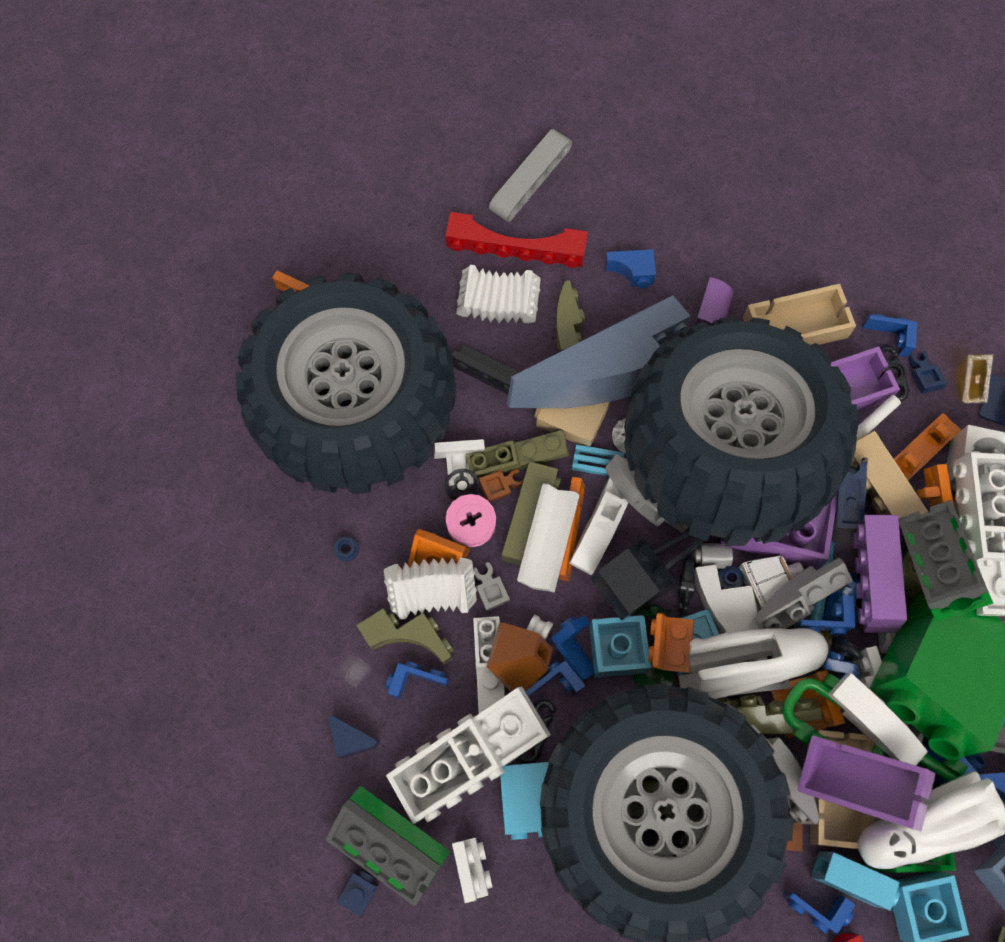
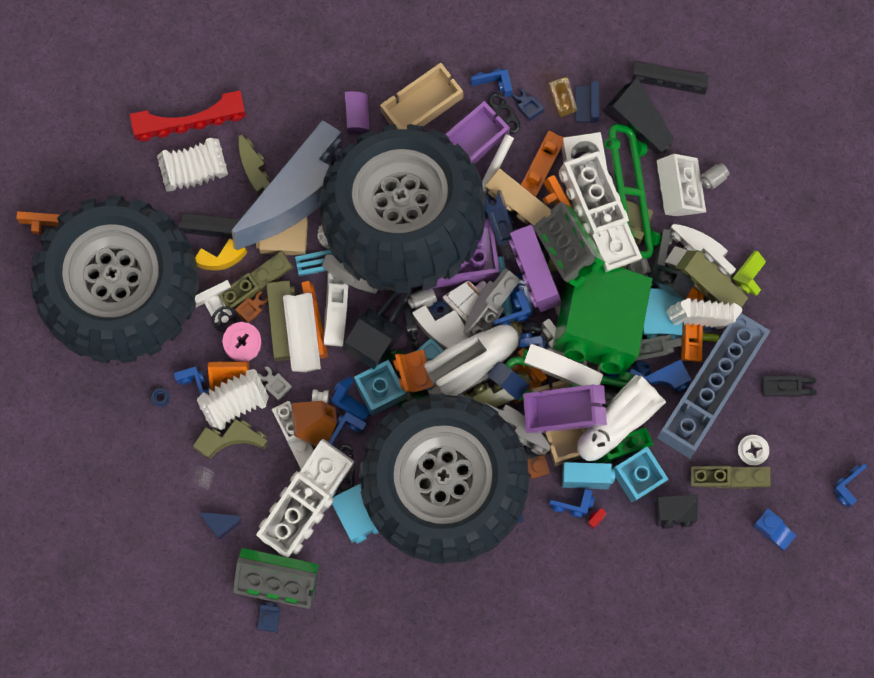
camera: 25 degrees left, 5 degrees up
(386, 536) = (185, 377): none -> blue bracket
(397, 681) = (236, 473): blue bracket -> none
(472, 877) = (333, 564): white plate -> none
(492, 416) = (226, 259): none -> yellow brick
(530, 175) = (177, 57): light grey beam -> none
(635, 265) = (286, 102): blue arch -> none
(795, 707) = (508, 380): none -> dark blue slope

